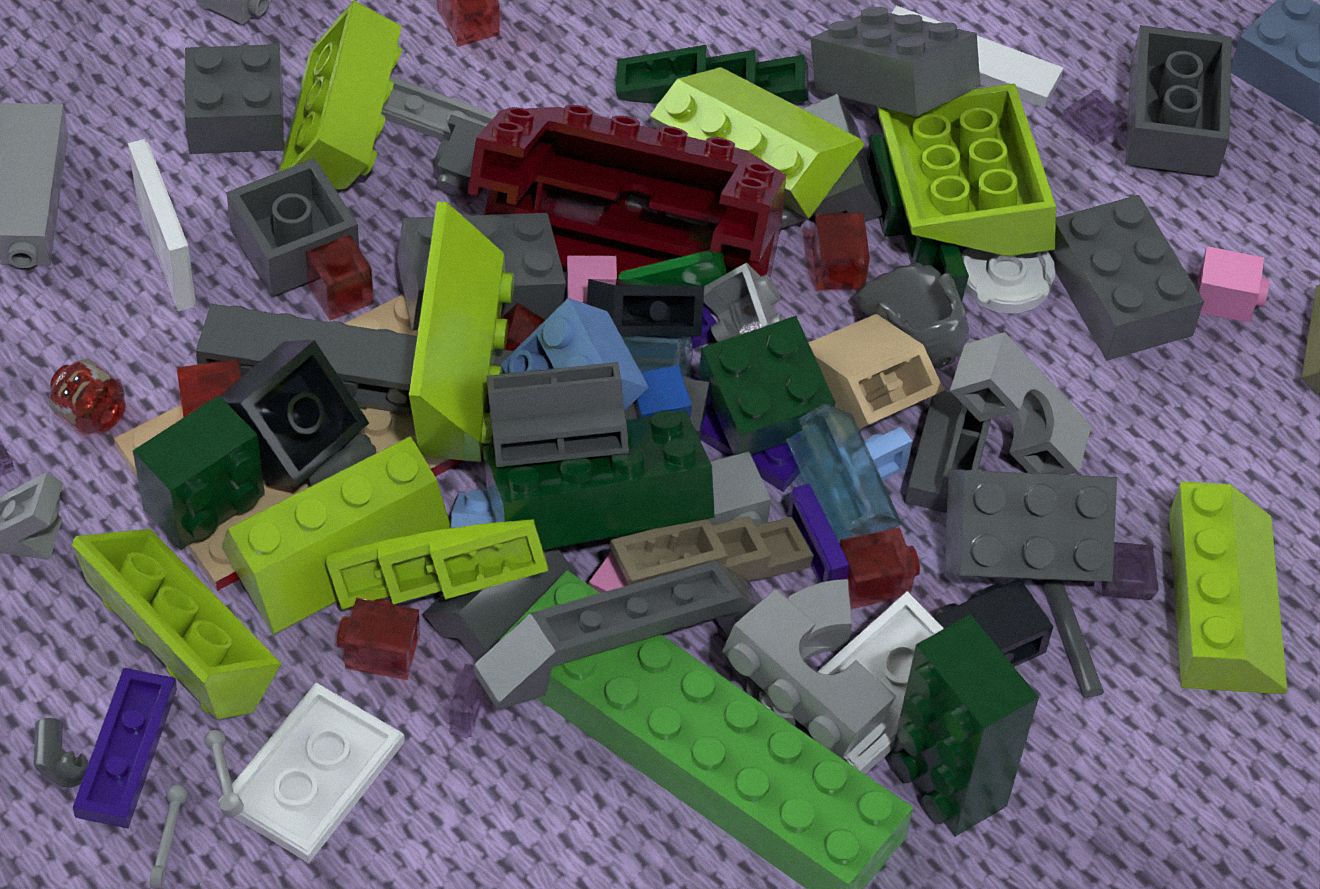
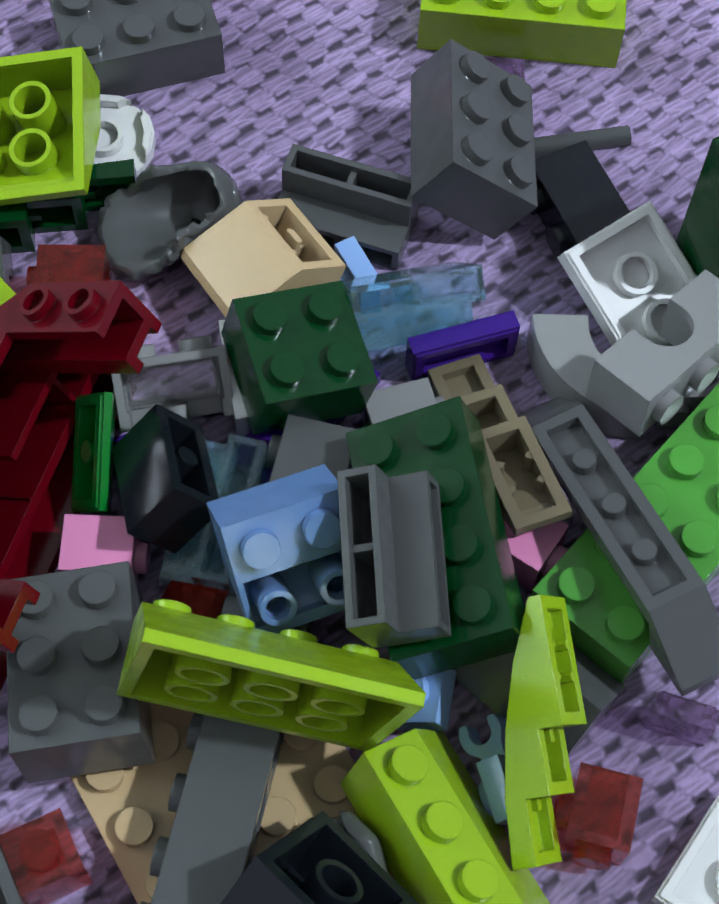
camera: 85 degrees left, 10 degrees up
(664, 393) = (312, 449): blue tile -> none
(879, 567) = (505, 287): clear red brick -> none
(1001, 380) = (327, 124): light grey arch -> none

